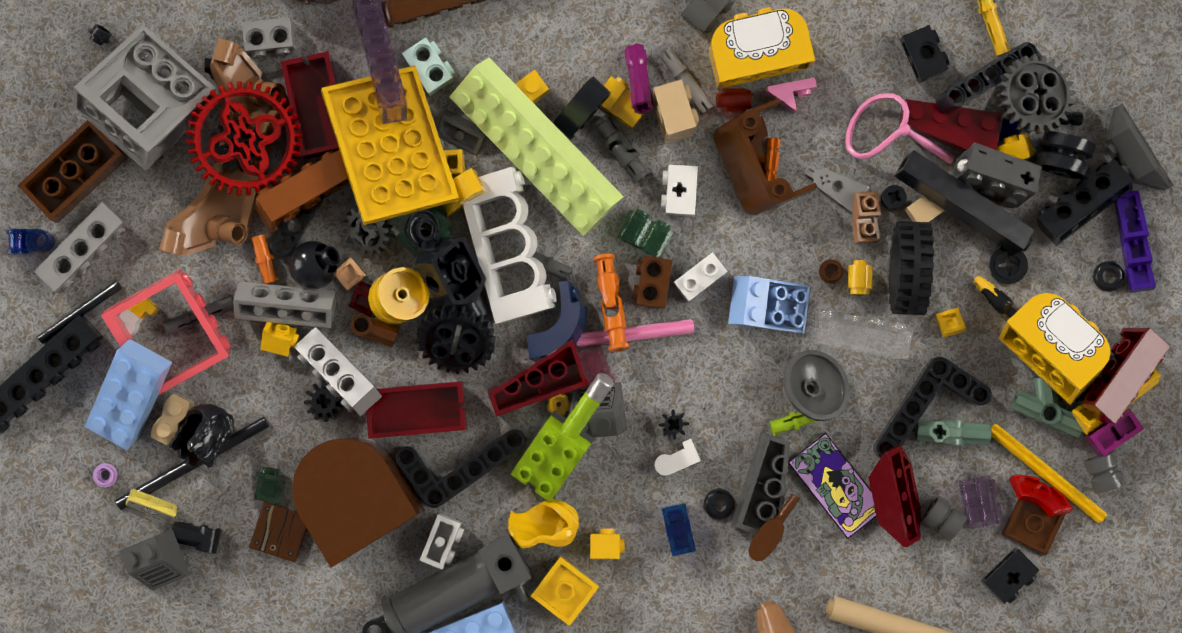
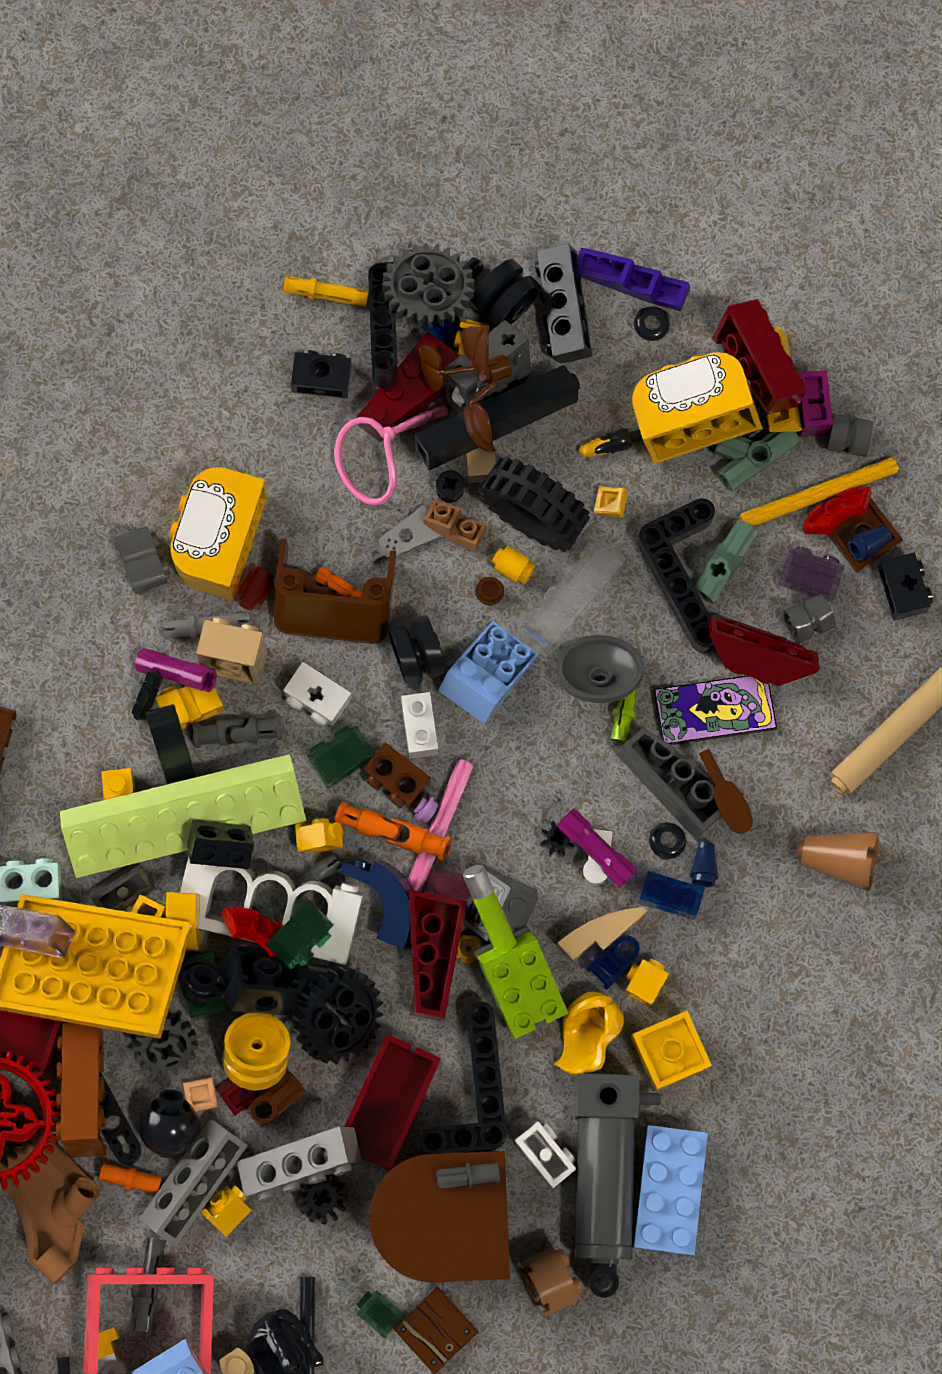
camera: 65 degrees left, 10 degrees down
(355, 593) = (549, 1280): none -> medium nougat brick
(384, 498) = (468, 1175): none -> dark grey axle
(484, 250) = (251, 926): none -> red tile
(495, 281) = (300, 935): none -> clear green brick
(528, 185) = (220, 844): none -> black brick
(577, 251) = (318, 836): none -> yellow brick
(606, 513) = (613, 962): none -> clear blue piece
(609, 68) = (147, 694): none -> black axle
(623, 492) = (599, 932): none -> tan slope
(641, 316) = (425, 808): none -> lavender plate
(676, 473) = (612, 863): none -> magenta axle
(714, 541) = (704, 868): none -> dark blue cone
(753, 245) = (419, 650): none -> black wheel
(786, 92) = (279, 529): bright pink slope -> none
(990, 175) = (476, 348): none -> reddish brown plant
(1016, 273) = (588, 425): black gear -> none
(1027, 531) = (869, 542): none -> dark blue cone
(1133, 152) = (540, 229): dark grey wedge -> none

